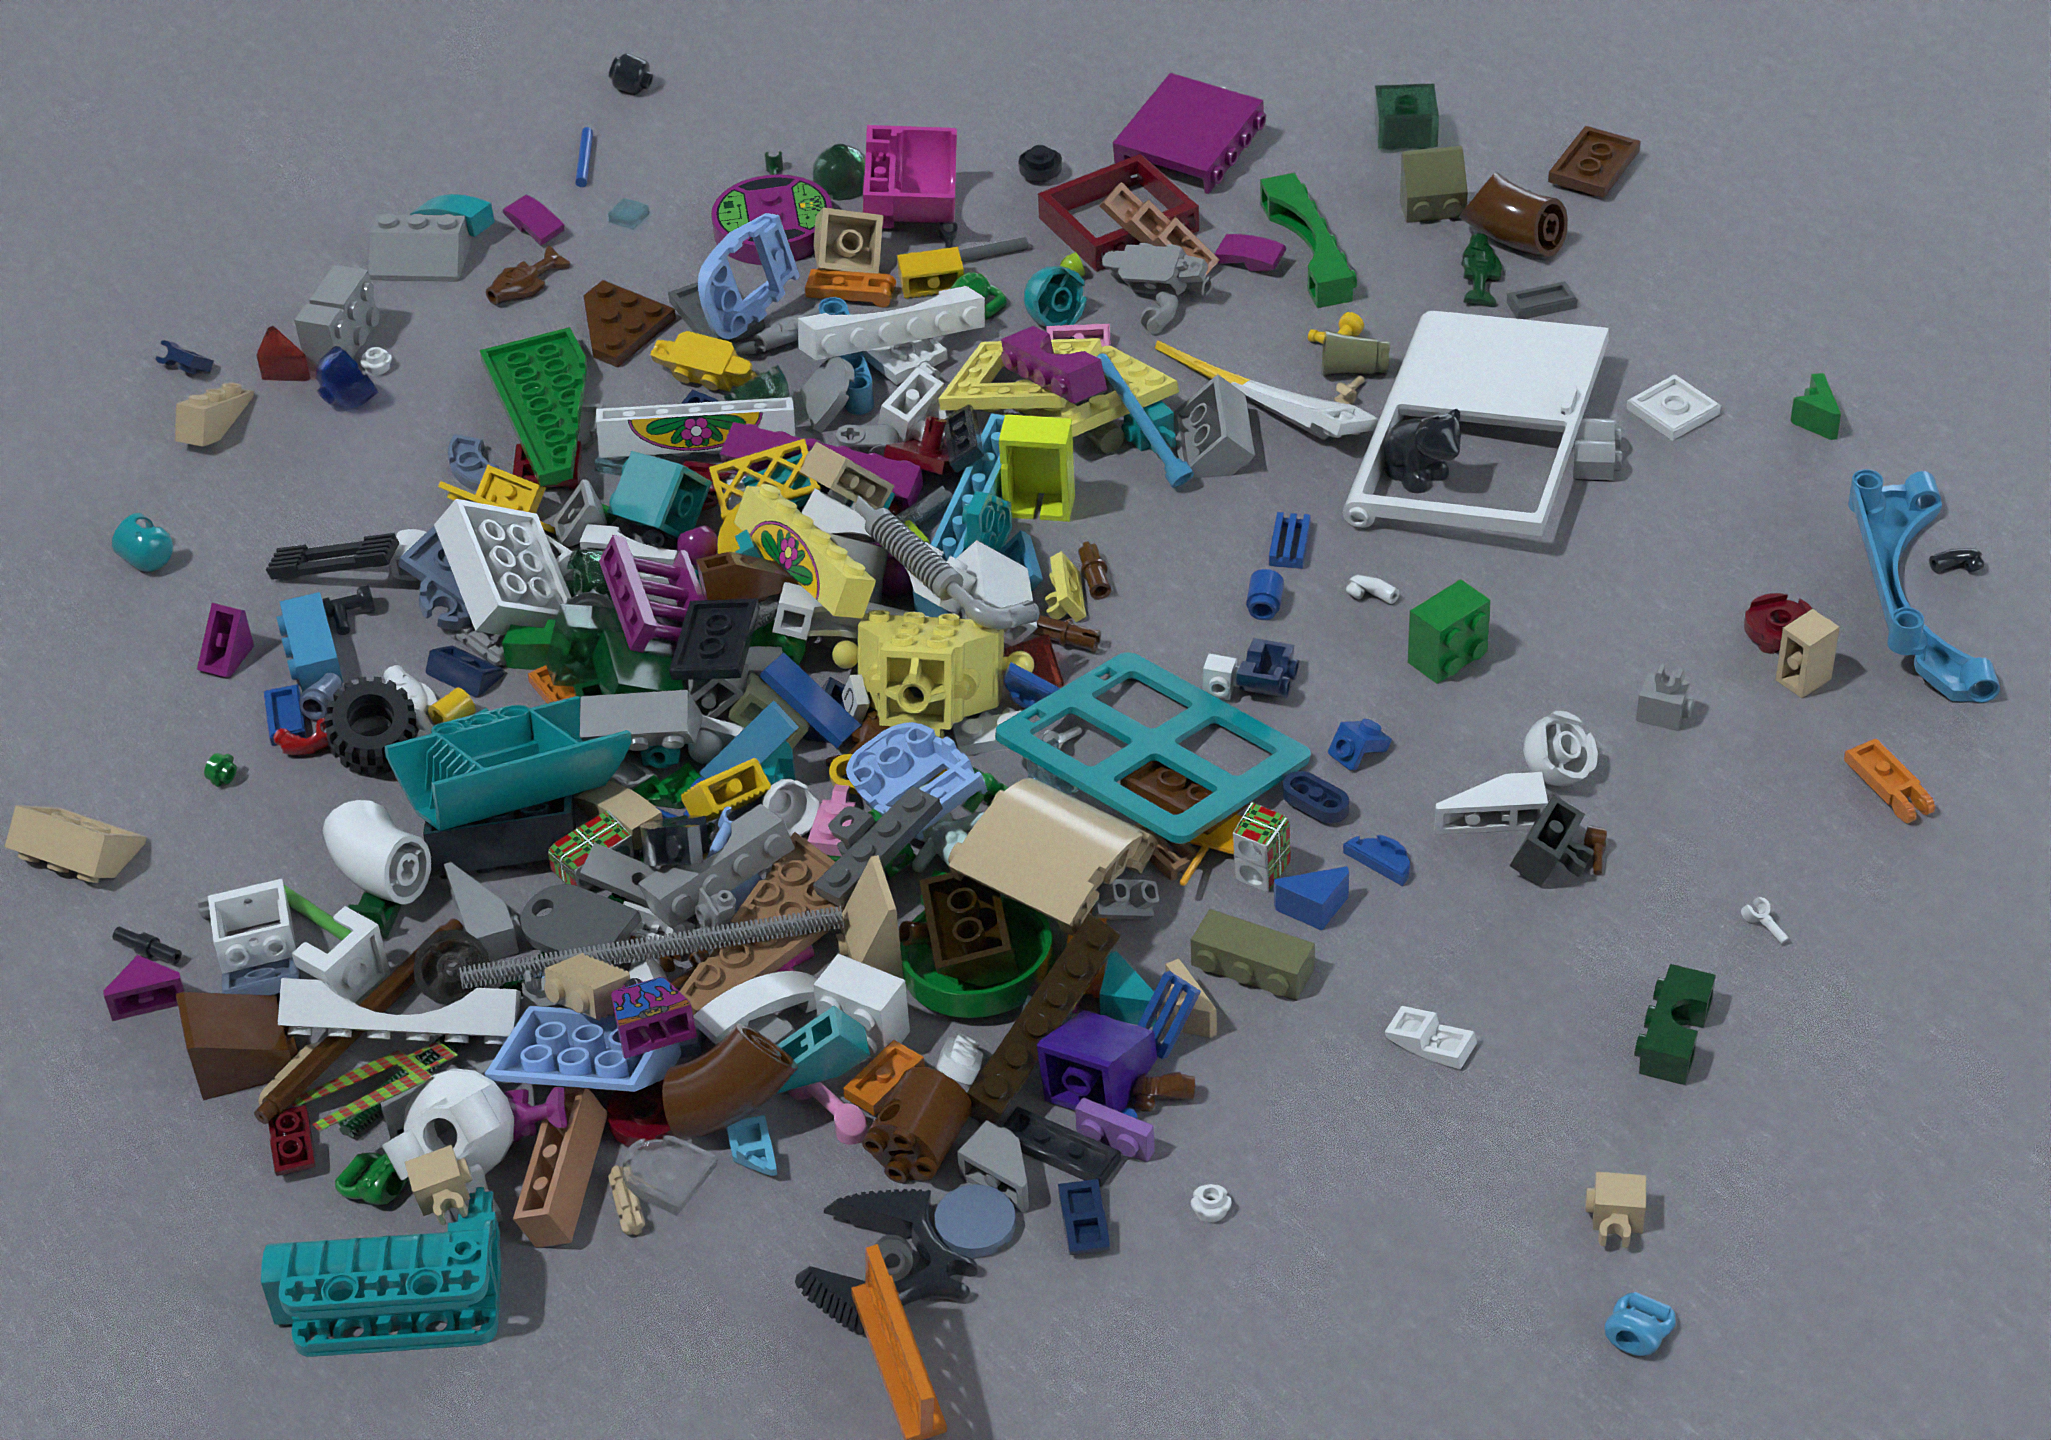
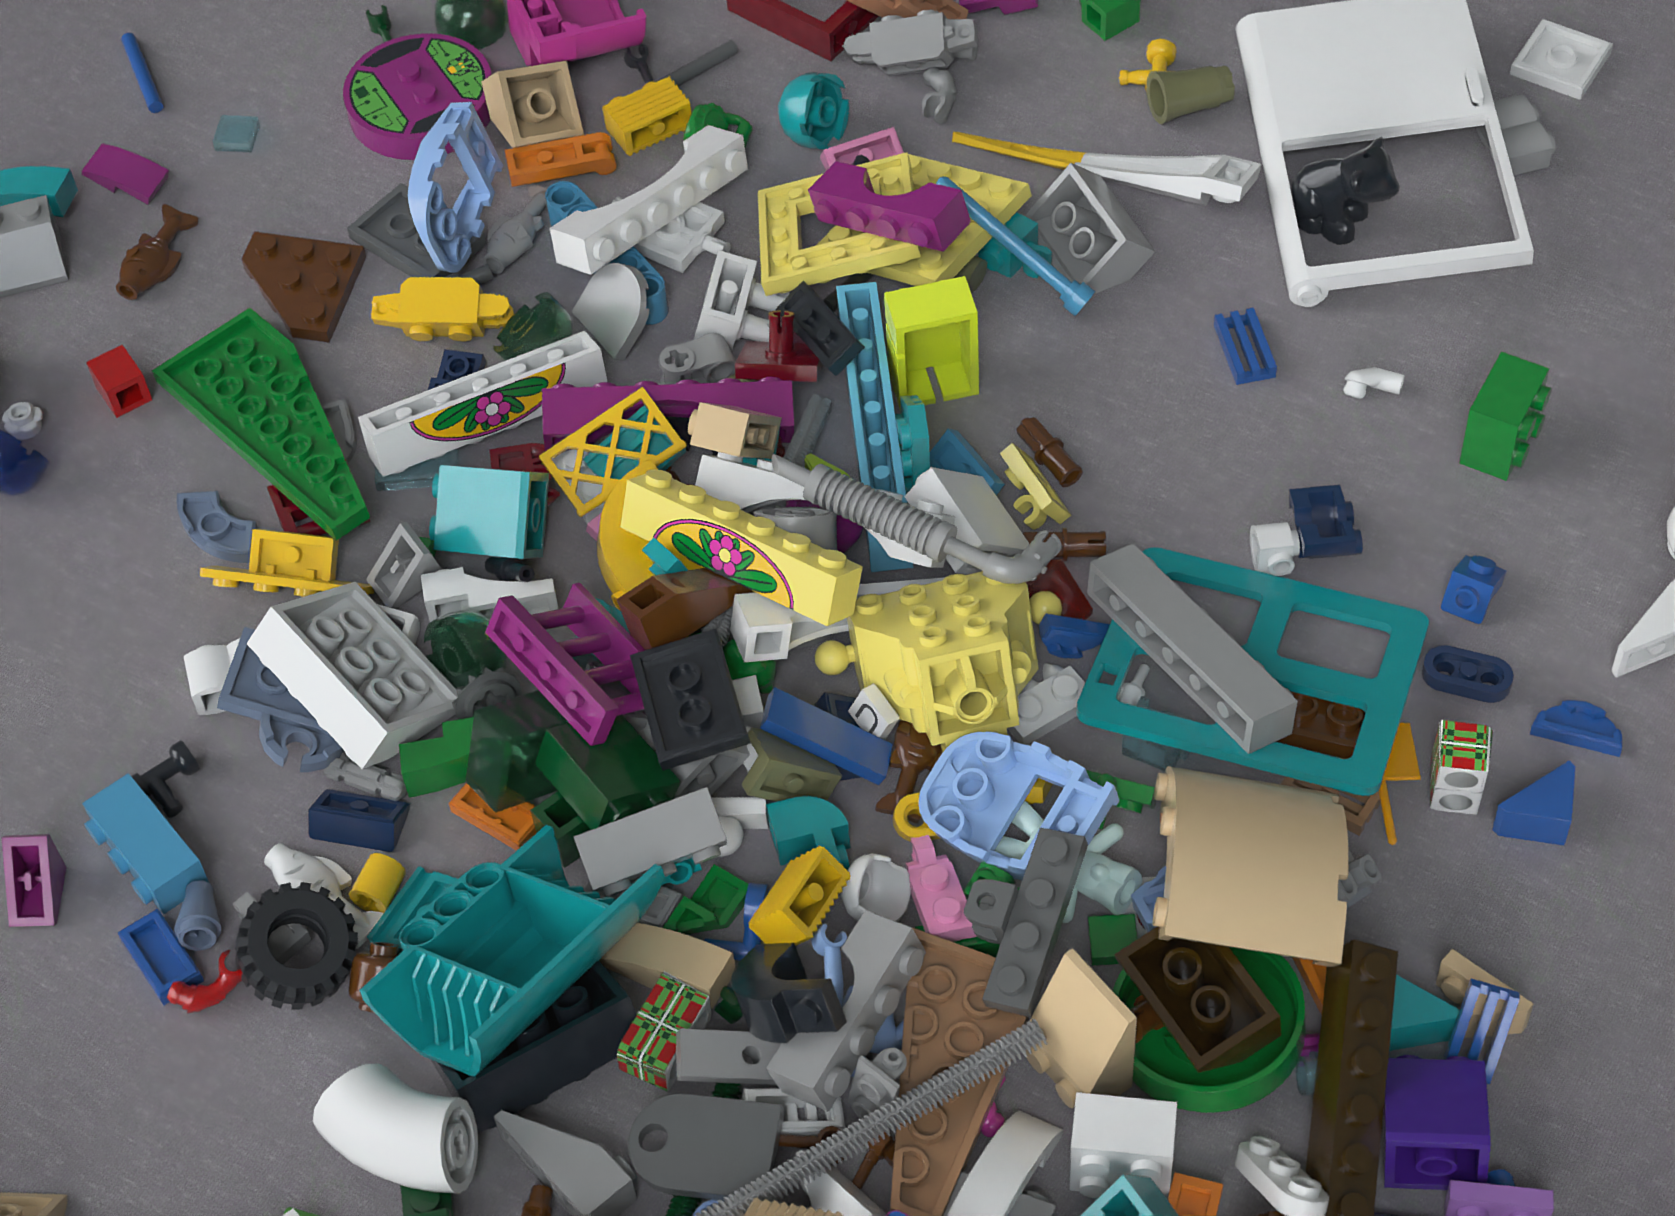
camera: 20 degrees left, 10 degrees up
(220, 769) = (119, 1065): green plate -> none
(293, 560) = (61, 735): black container -> none
(453, 351) = (119, 381): none -> red brick
(698, 543) = (566, 559): magenta piece -> none
(754, 741) = (798, 826): dark azure tile -> none
(1074, 263) = (805, 62): lime hinge -> none
(1104, 713) = (1192, 648): none -> light grey brick
(1166, 1087) = (1520, 1123): reddish brown arm -> none
(1252, 954) = (1519, 909): olive brick -> none
(1264, 594) = (1262, 425): blue brick -> none
(1347, 392) = (1203, 142): tan hand -> none

